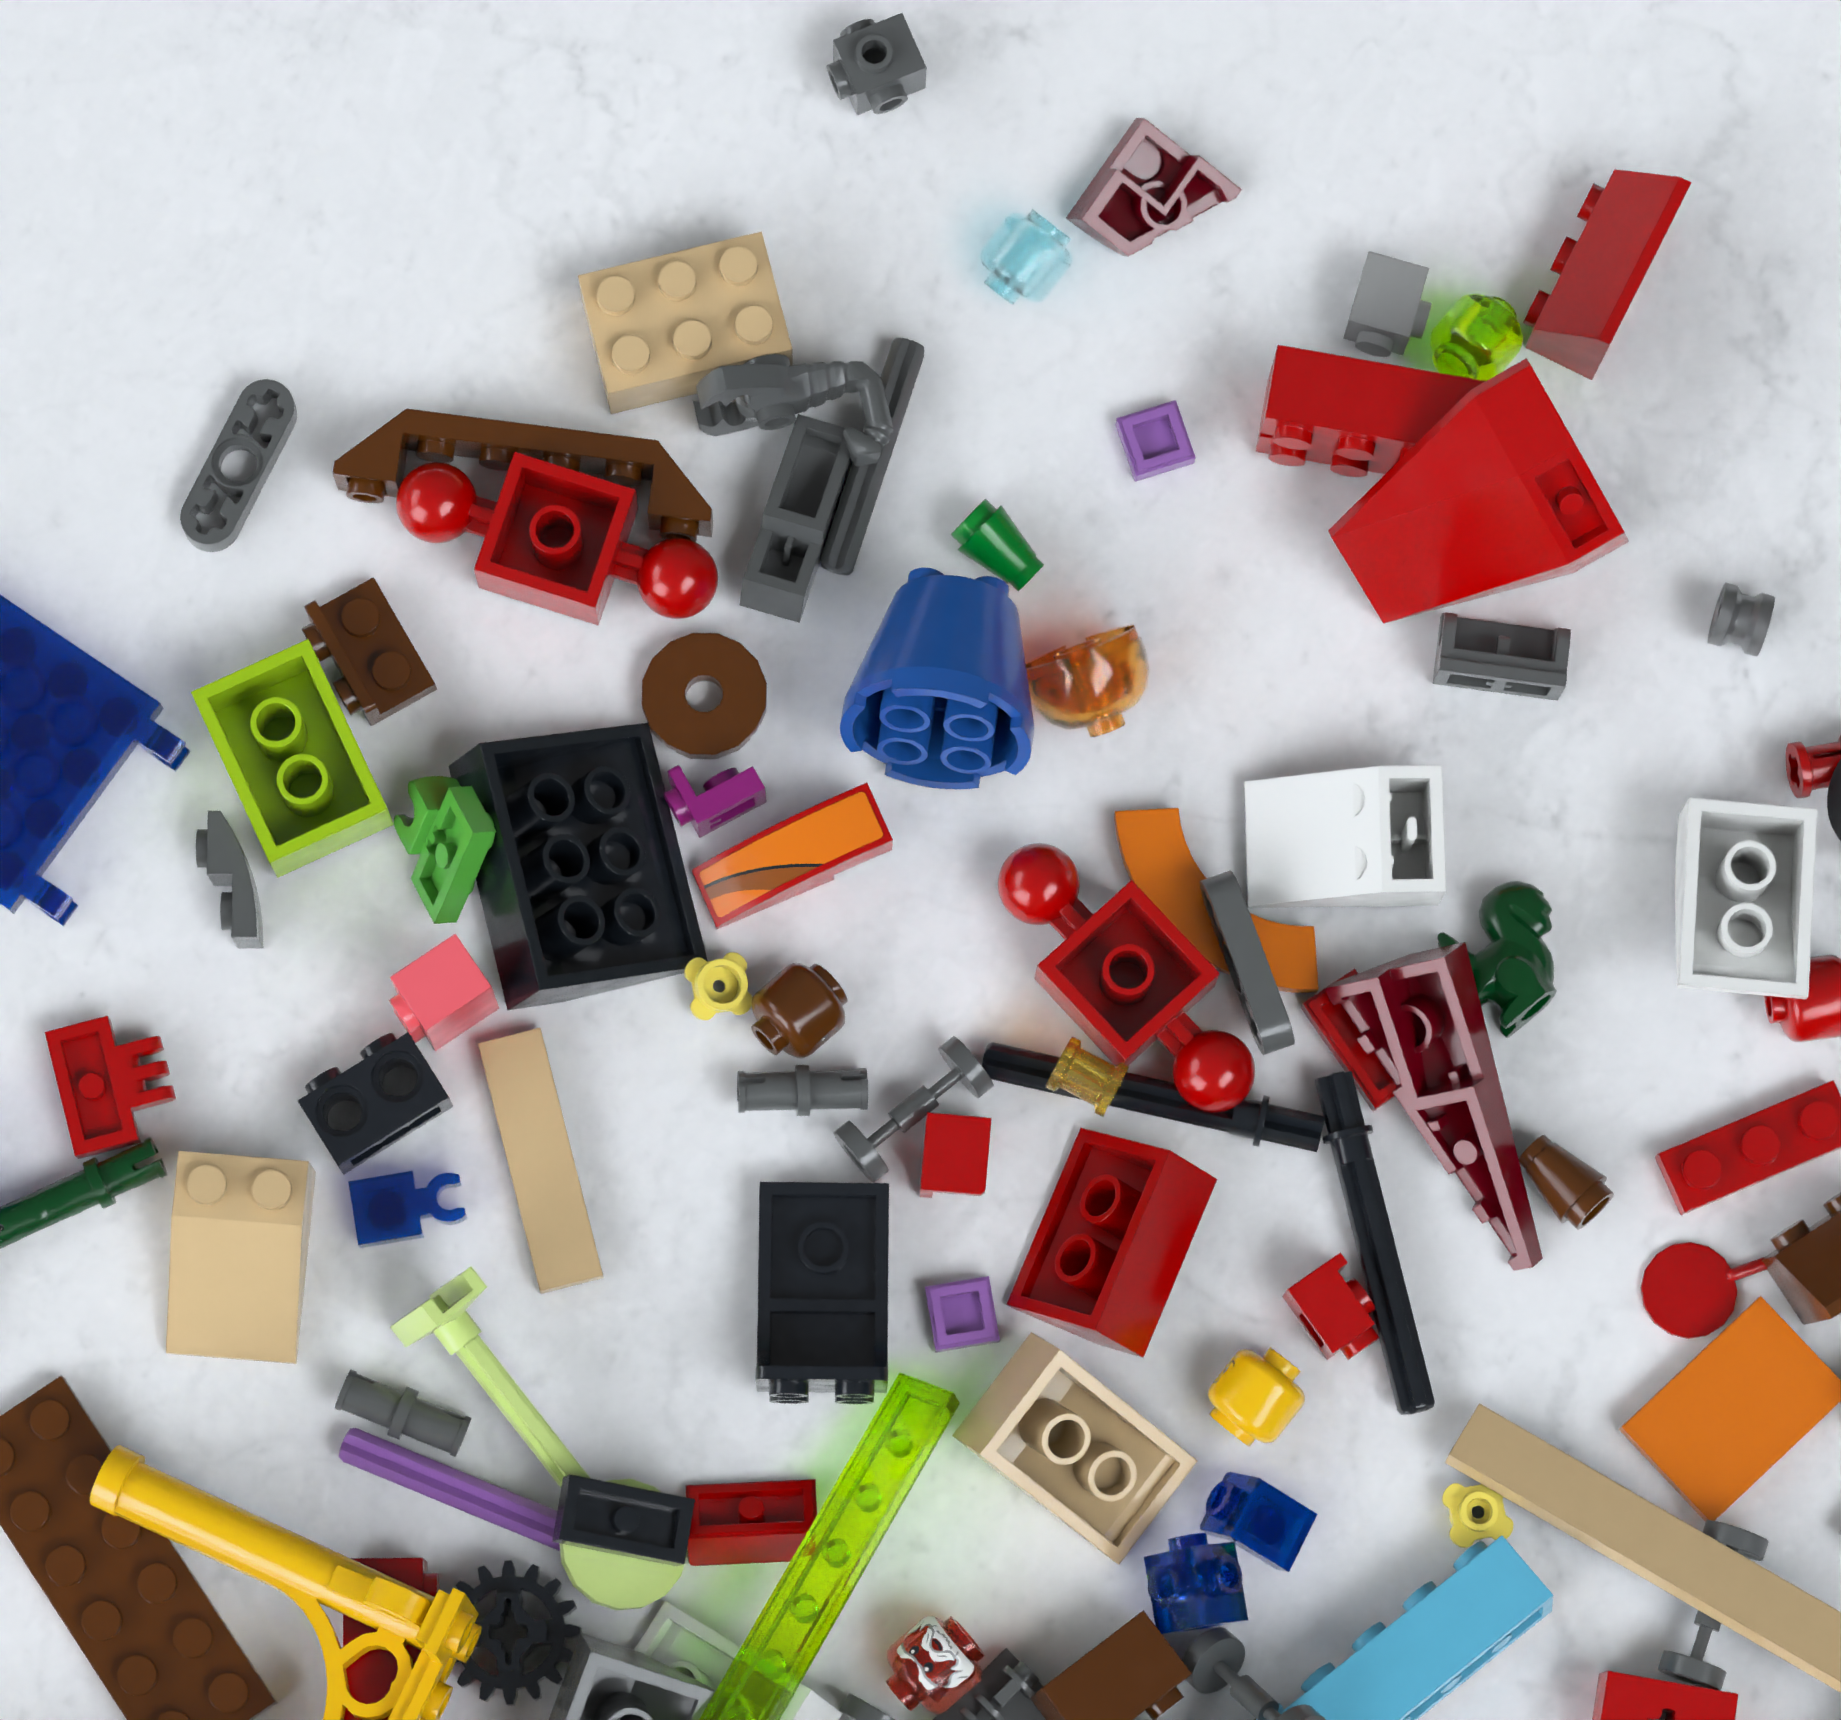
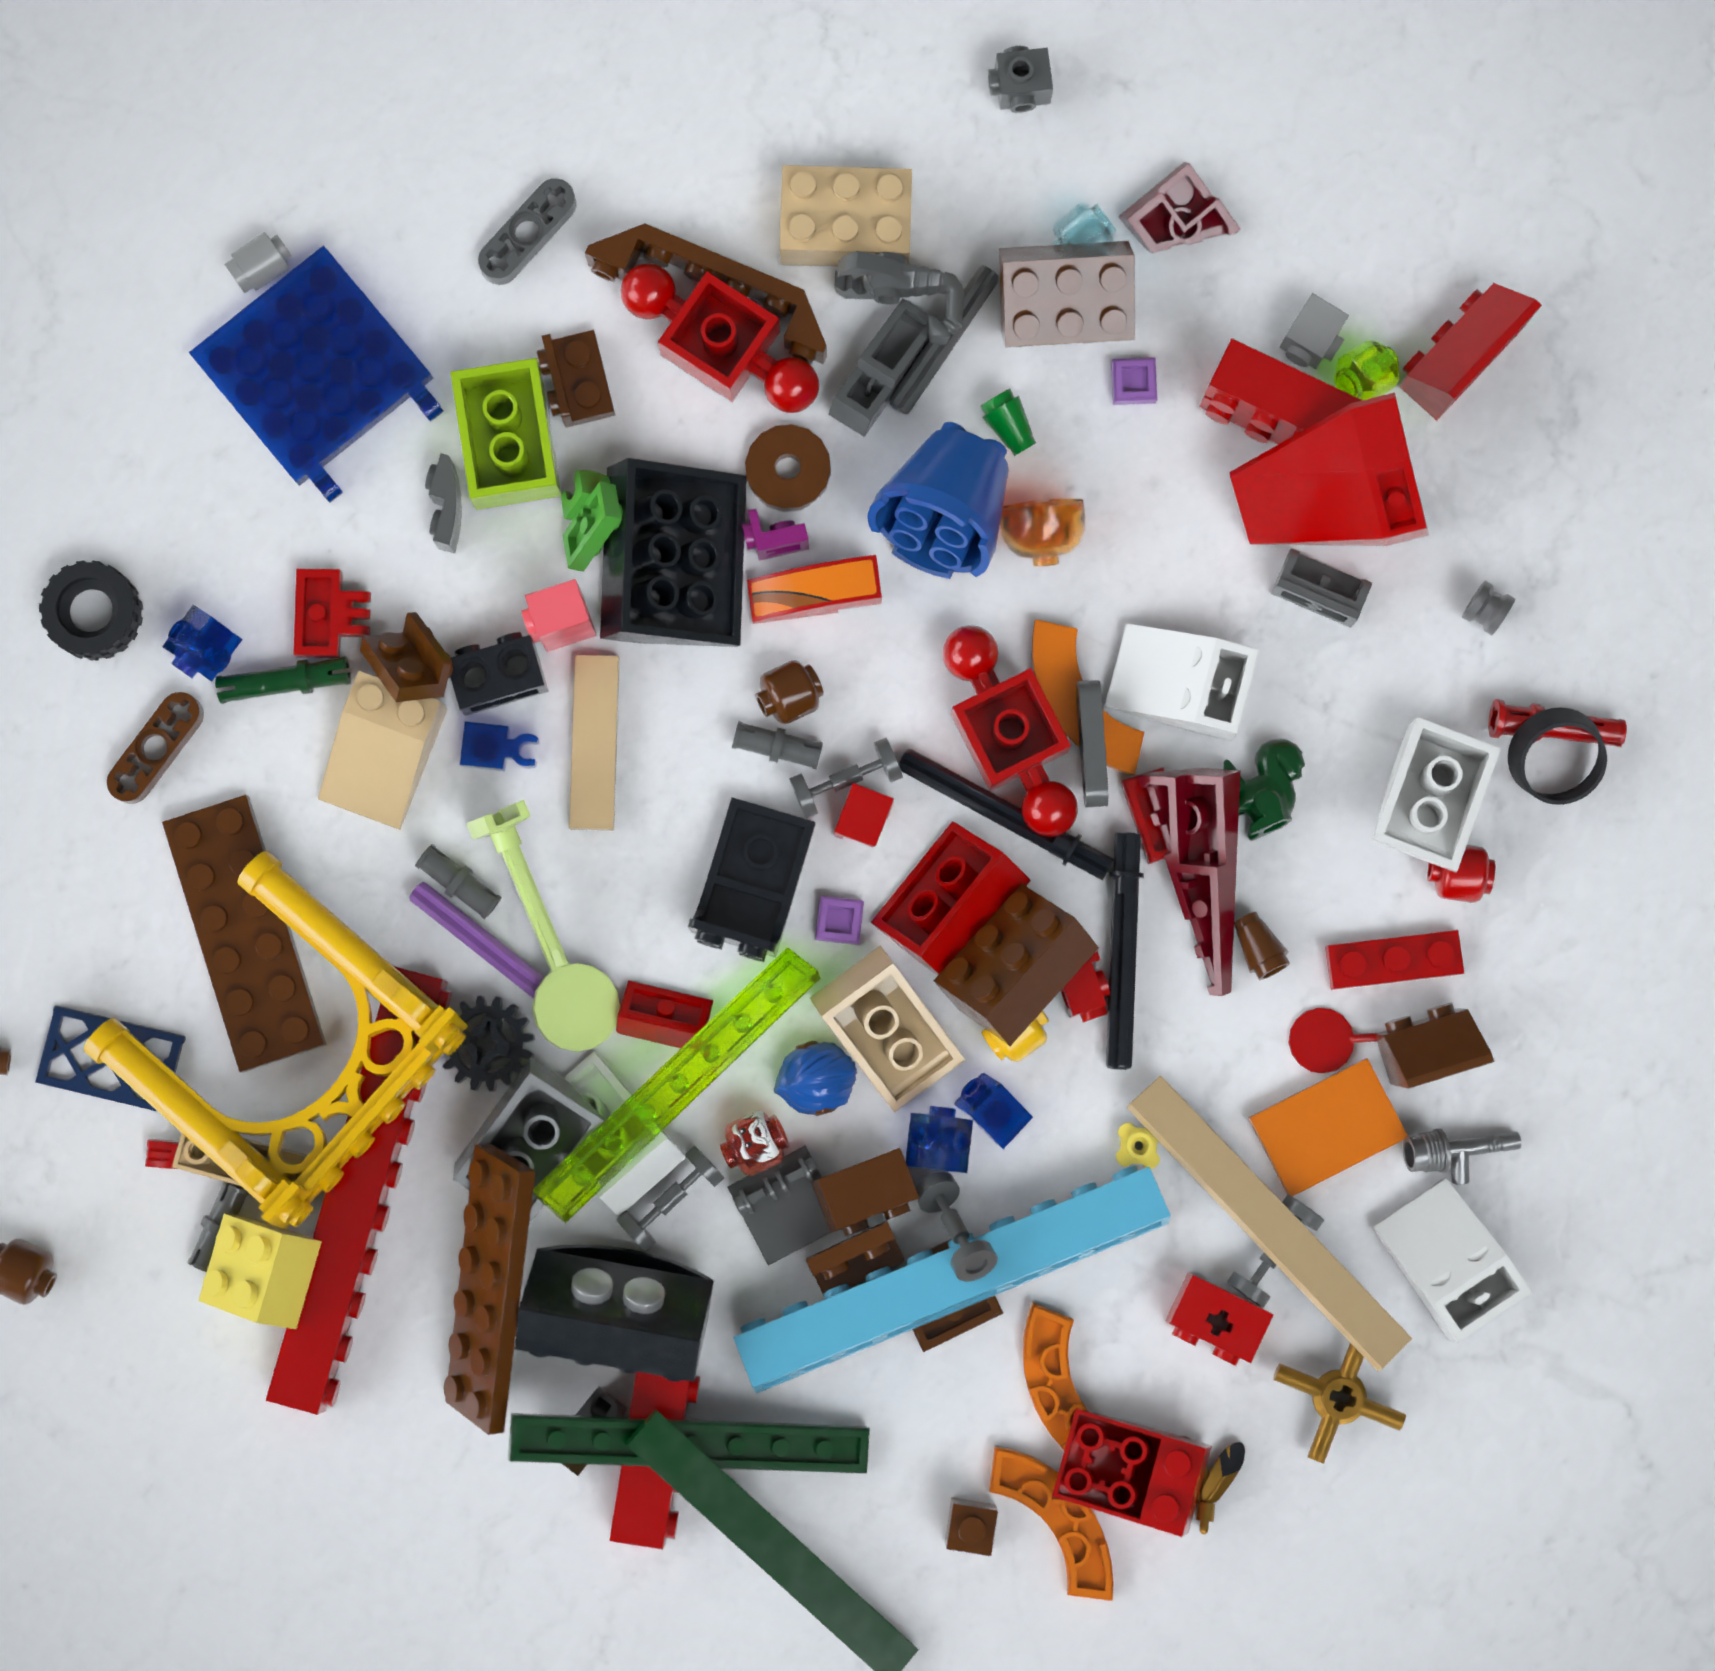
camera: 20 degrees right, 5 degrees up
(246, 1118) = (409, 662): none -> reddish brown bracket
(623, 1520) = (579, 992): black plate -> none
(728, 970) = (751, 652): light yellow plate -> none
(994, 1547) = (816, 1078): none -> blue hair
(1028, 345) = (1067, 293): none -> brick
(1087, 1076) = (964, 789): clear yellow bush -> none
(1232, 1302) = (1016, 964): none -> reddish brown brick

